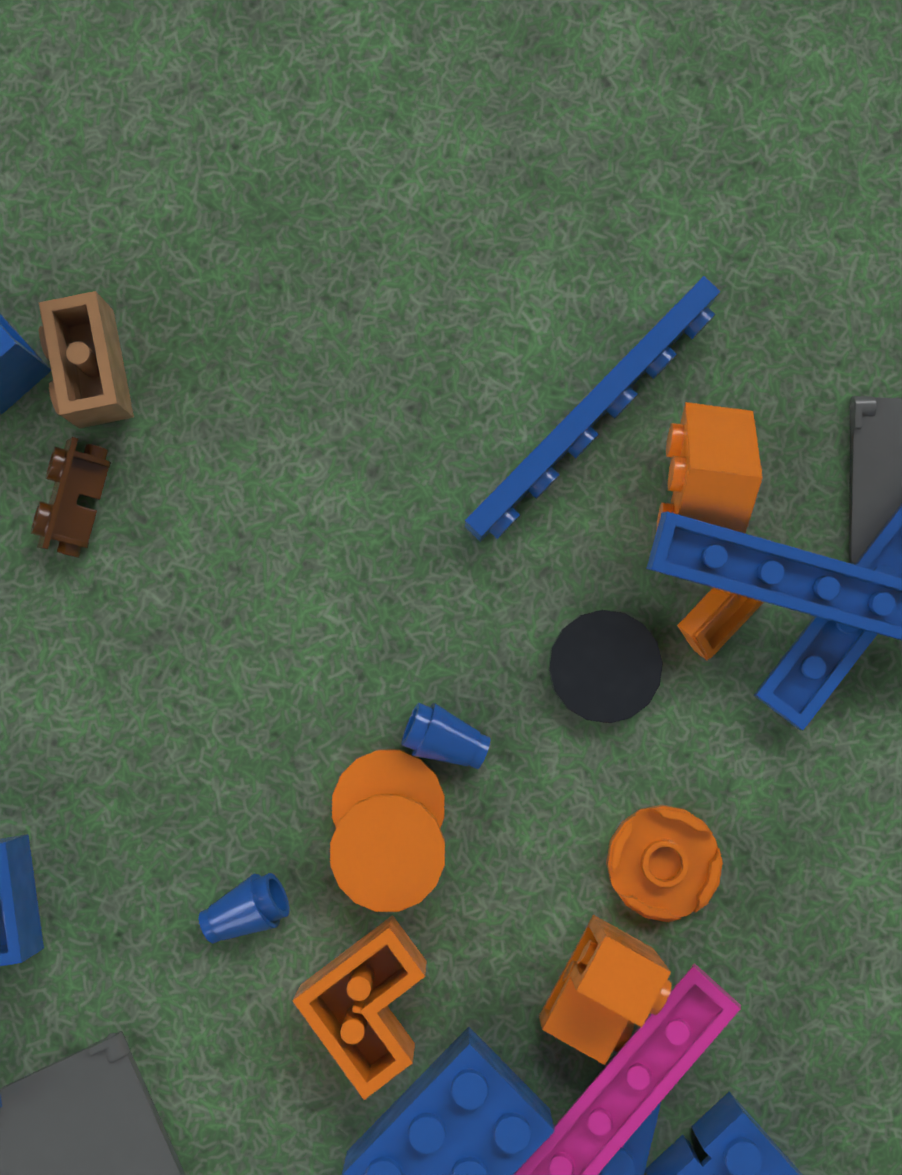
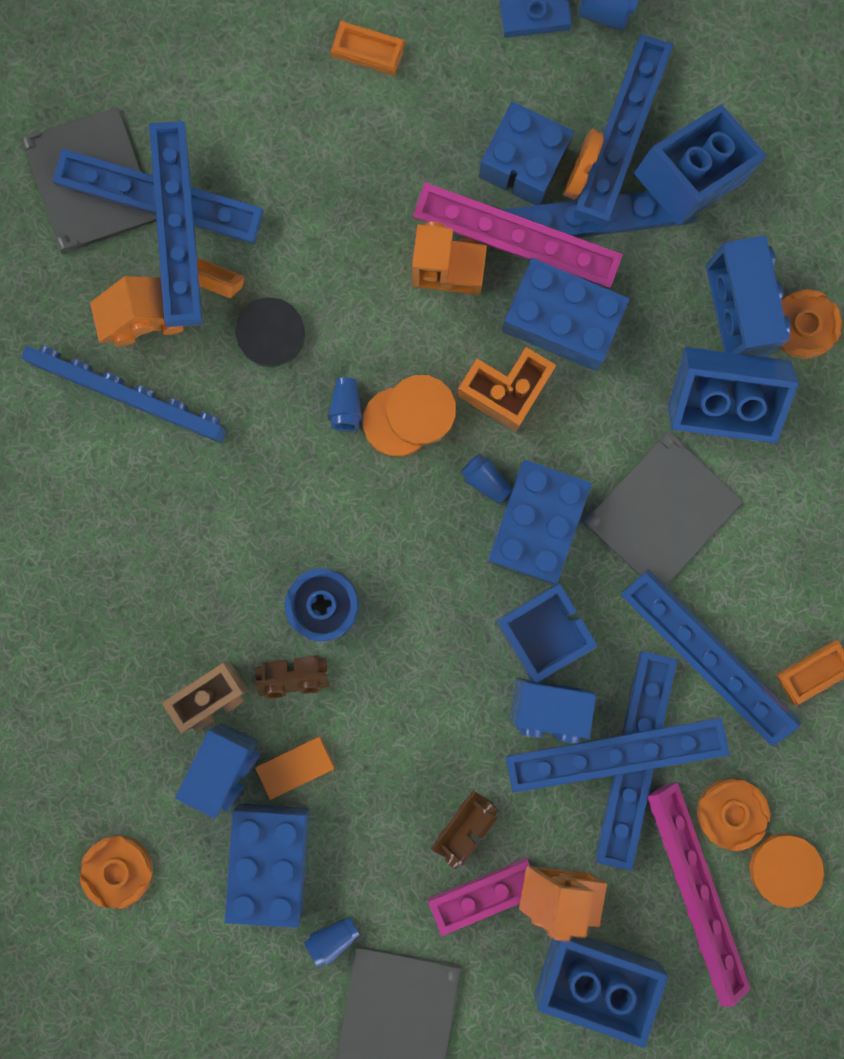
camera: 115 degrees left, 0 degrees up
(138, 554) = (306, 592): none -> blue brick
(138, 965) = (539, 522): none -> blue brick
(648, 848) = (367, 270): orange tile -> none

